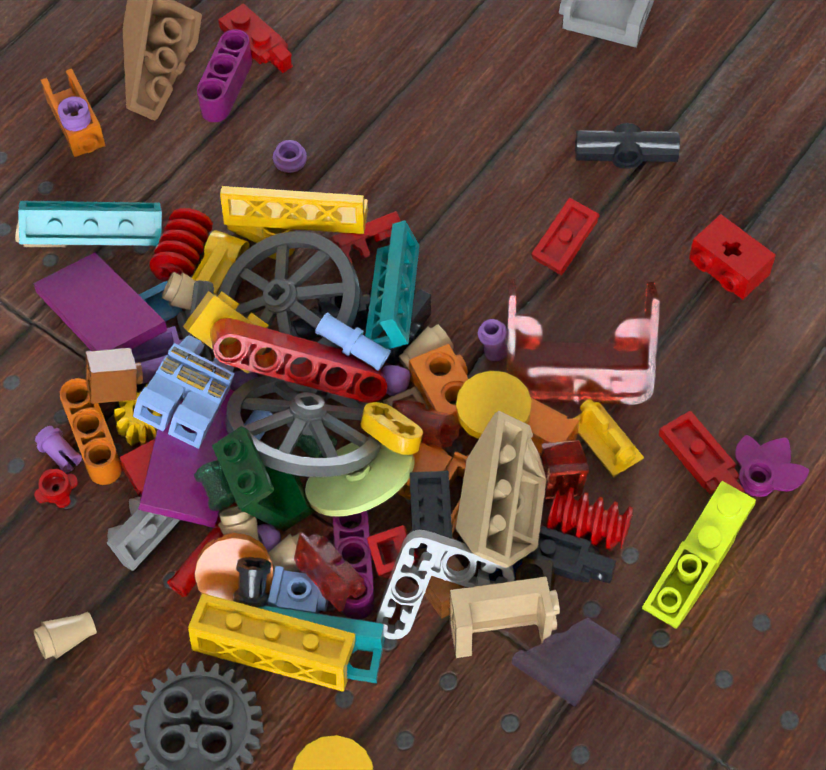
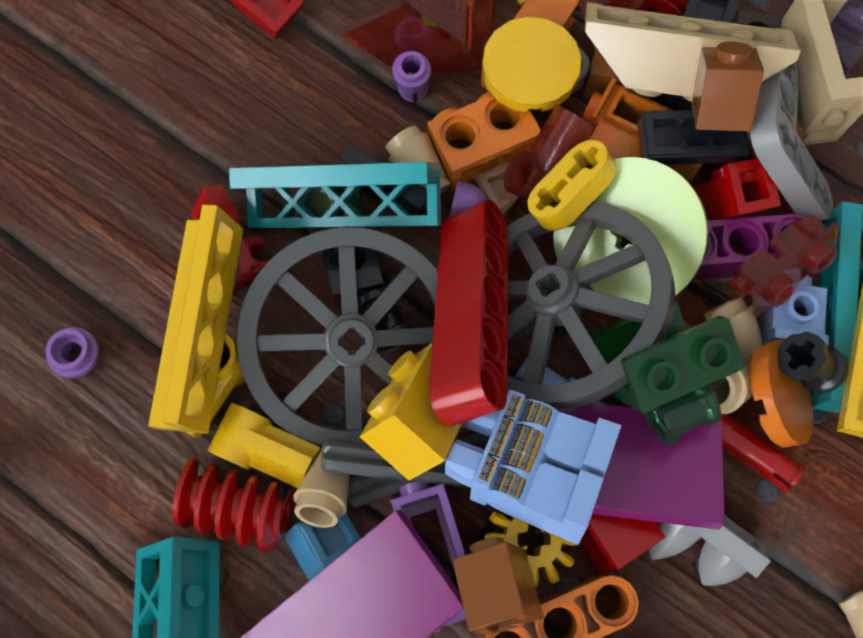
camera: 90 degrees left, 15 degrees up
(352, 341) = (438, 233): light blue pin -> none
(451, 507) = (727, 87): none -> dark orange brick

